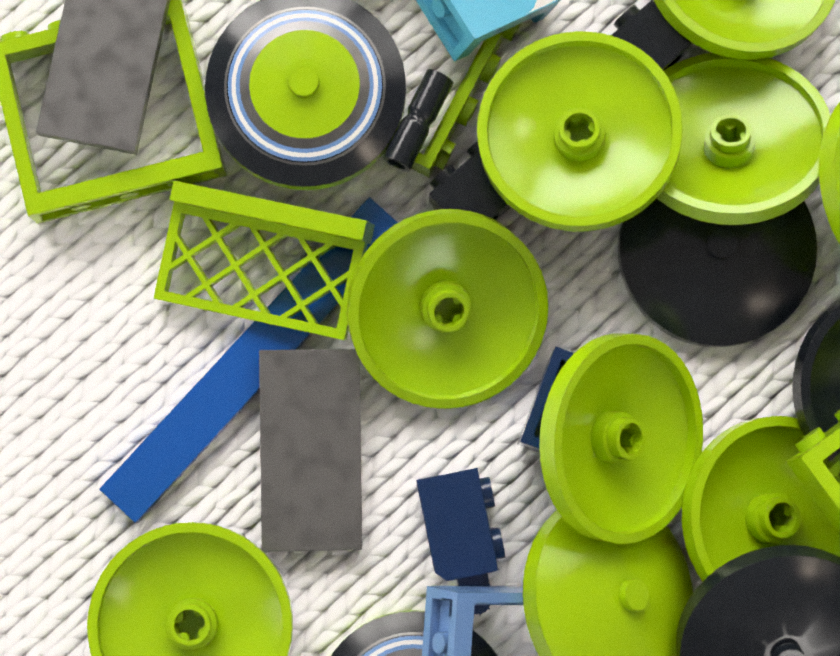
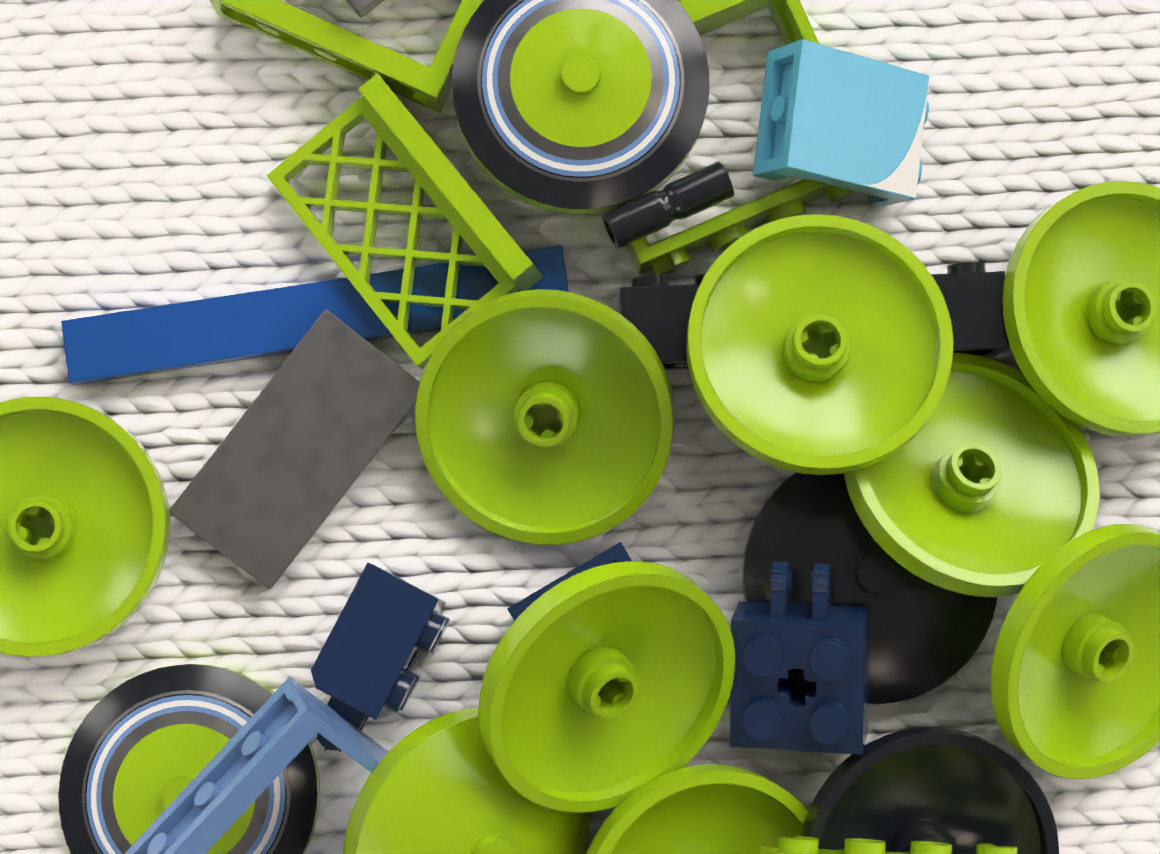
camera: 35 degrees right, 0 degrees up
(721, 309) = (826, 642): none -> dark blue hinge

